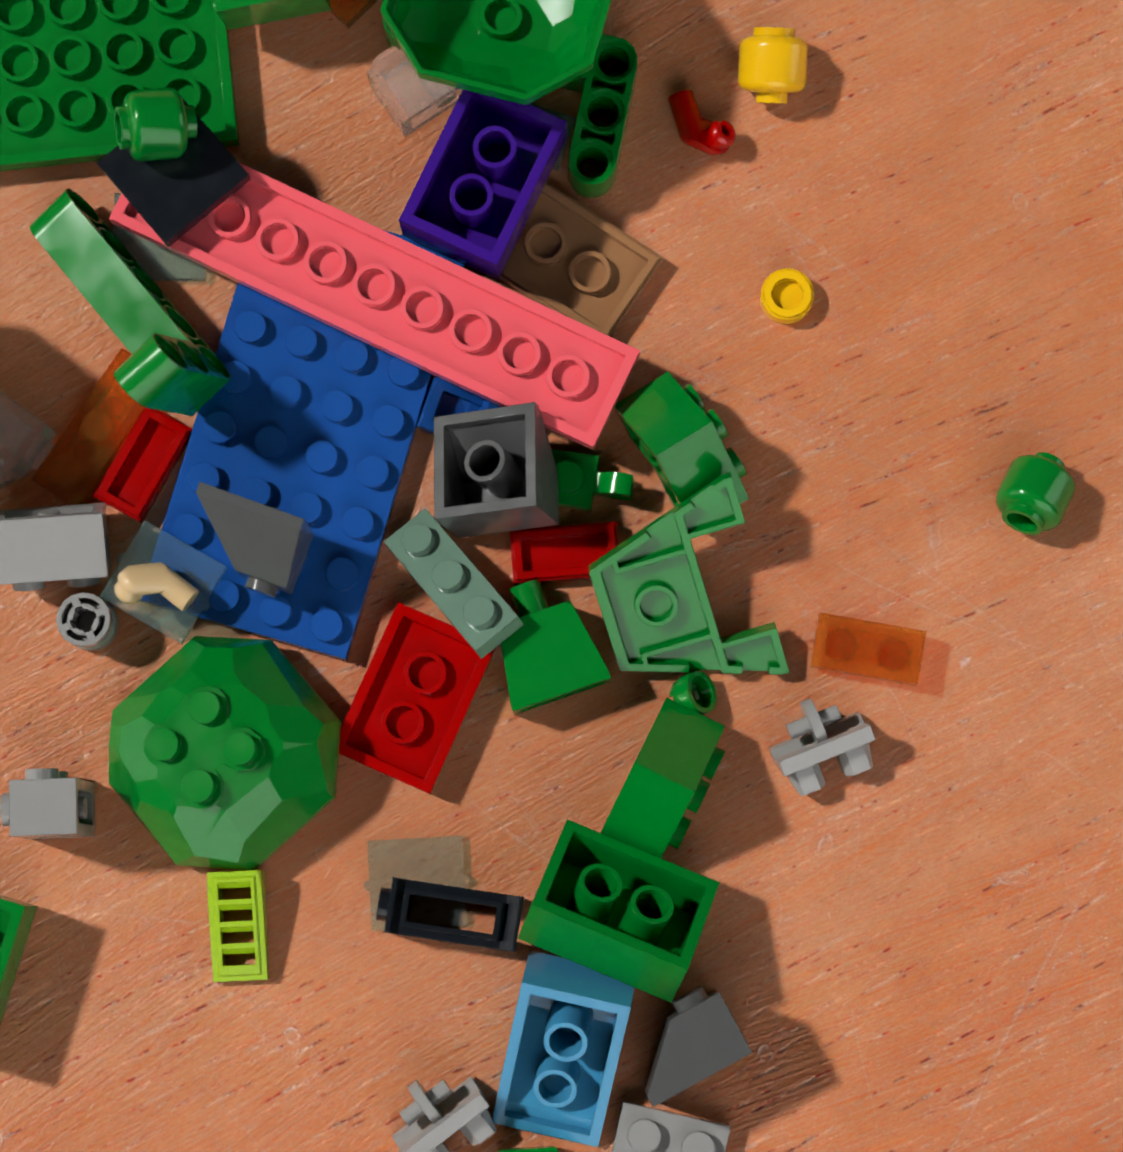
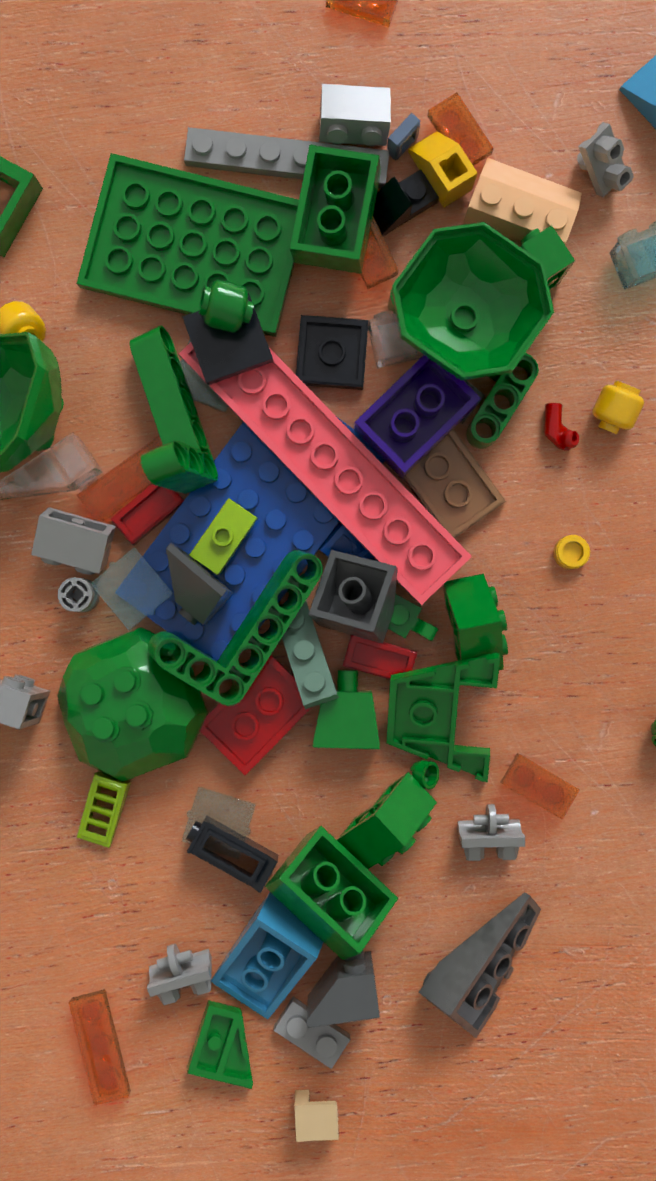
camera: 20 degrees right, 5 degrees up
(151, 579) = (124, 586): tan arm -> none
(271, 453) = (223, 536): none -> lime plate
(330, 137) = (332, 352): none -> black tile
(356, 583) = (246, 636): none -> green beam
(873, 959) = (469, 976): none -> flat silver wedge

